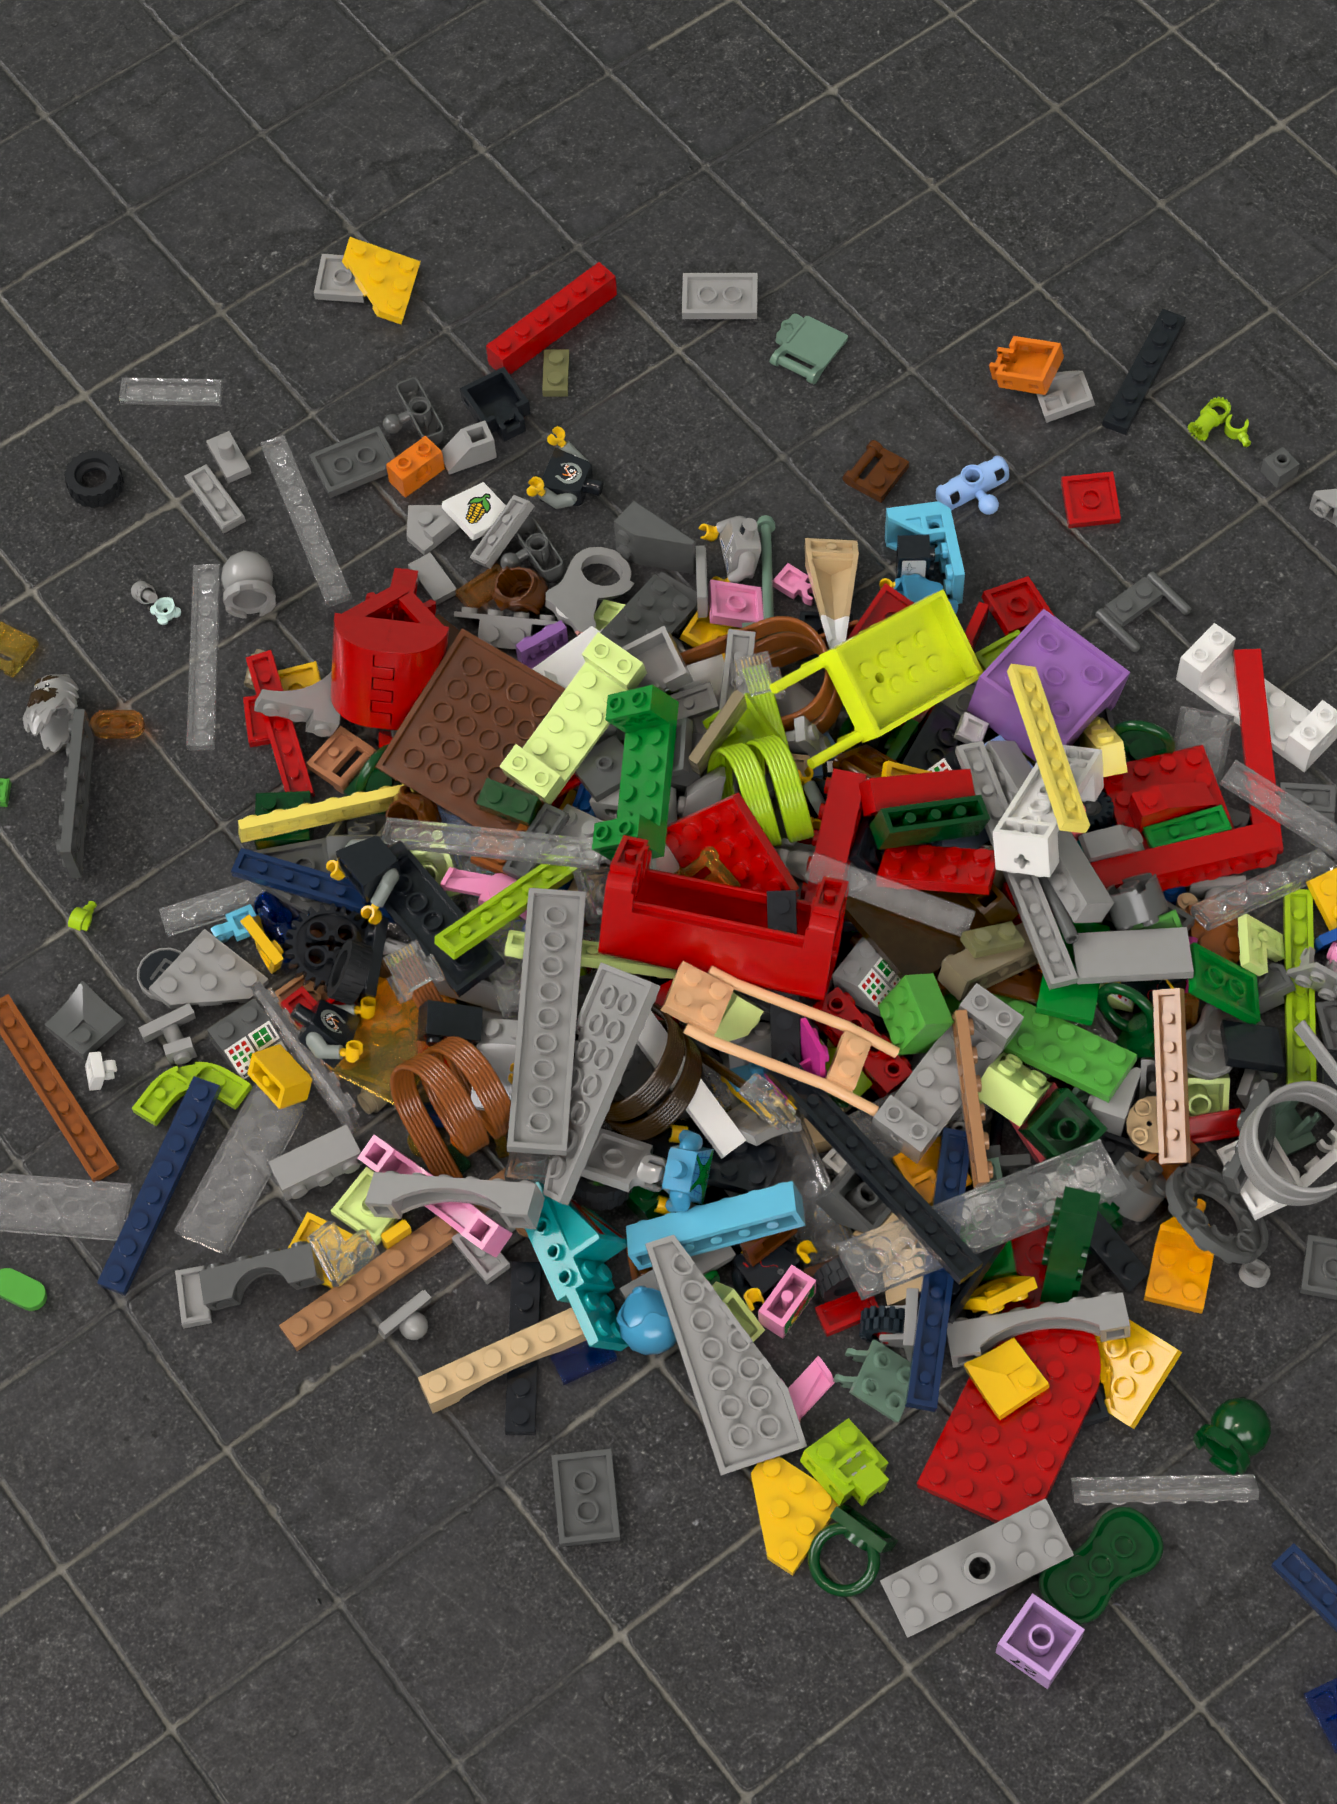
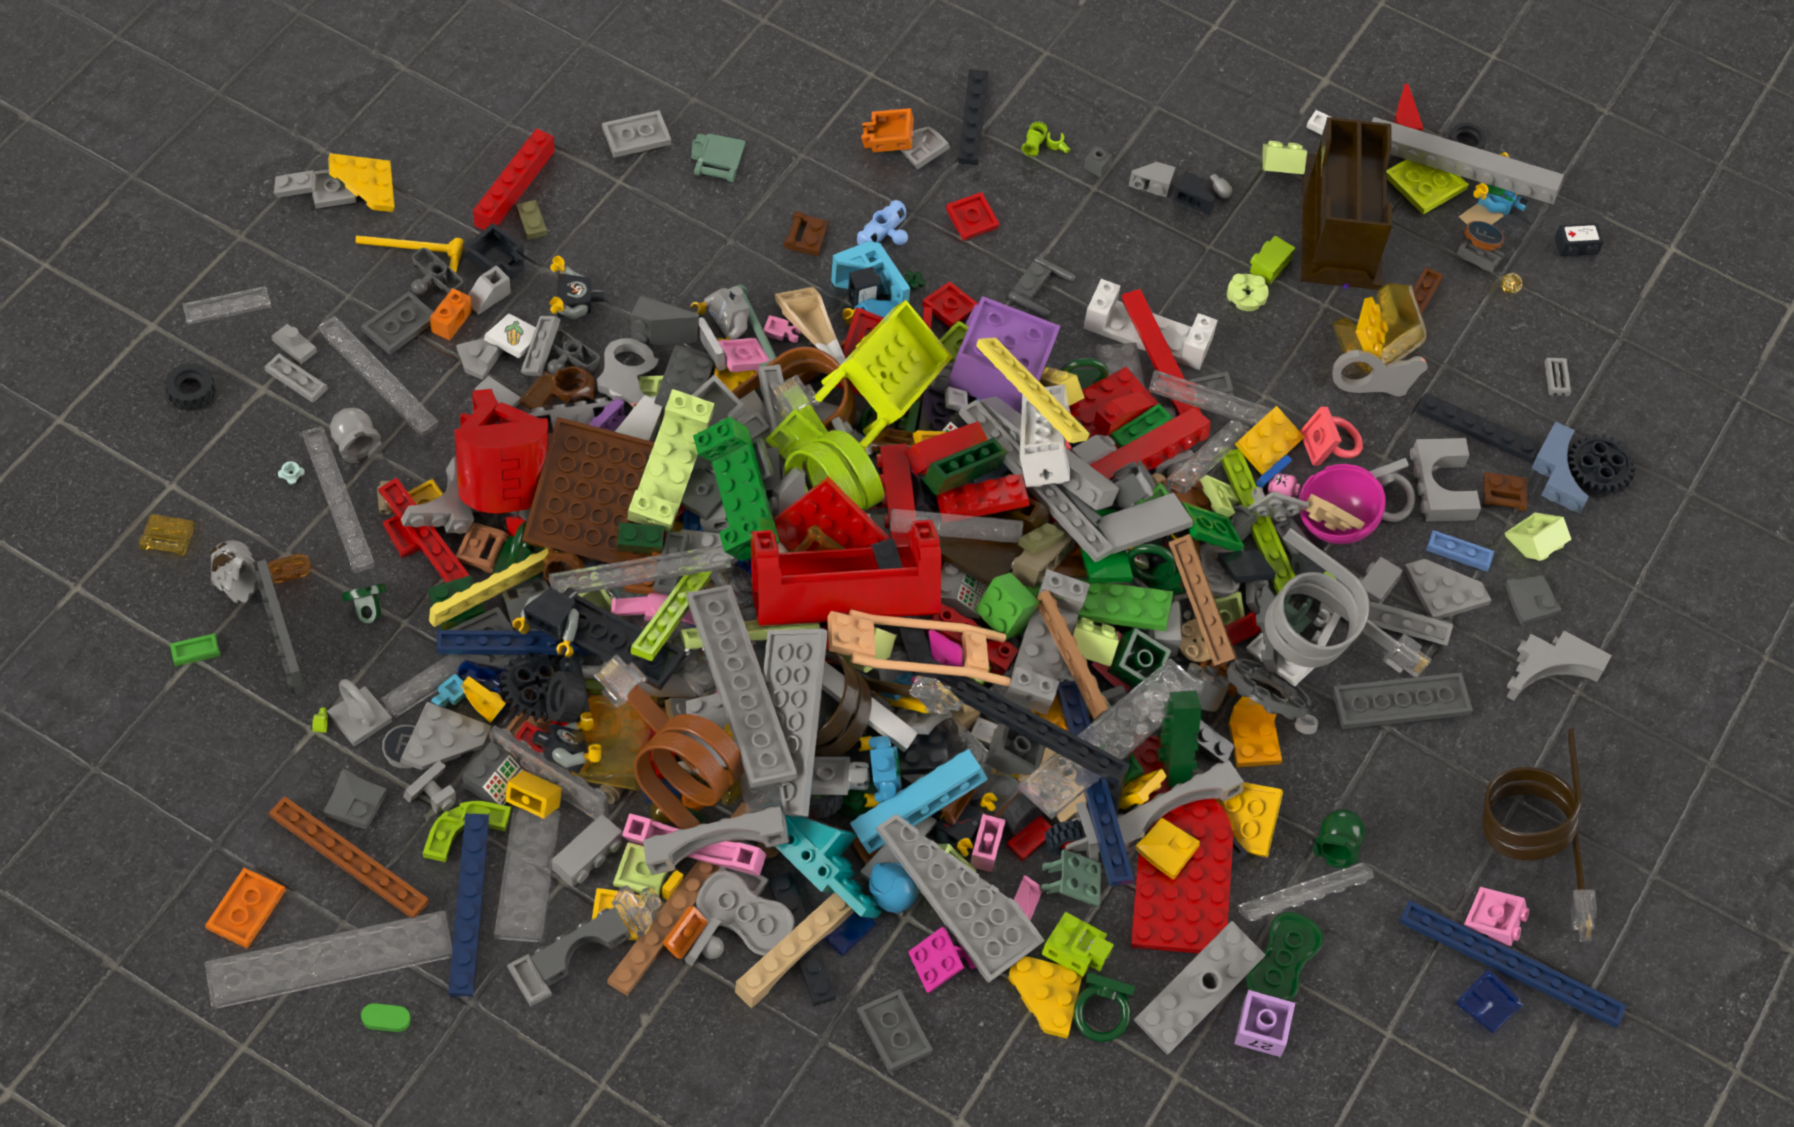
camera: 30 degrees left, 5 degrees down
(99, 1071) = (382, 833): white tile -> none
(127, 920) = (358, 713): none -> light grey tile
(143, 590) = (268, 463): light grey cylinder -> none
(185, 785) = (366, 597): none -> dark green tile
(301, 264) = (295, 184): none -> light grey plate
(388, 1297) = (685, 932): none -> orange plate
(443, 1019) = (657, 709): black brick -> none
(450, 387) = (453, 249): none -> yellow bar
(455, 1283) = (755, 919): none -> light grey plate
(669, 1427) = (938, 959): none -> dark pink plate
(718, 731) = (787, 440): dark tan tile -> none
(986, 562) = (914, 279): none -> dark green plant

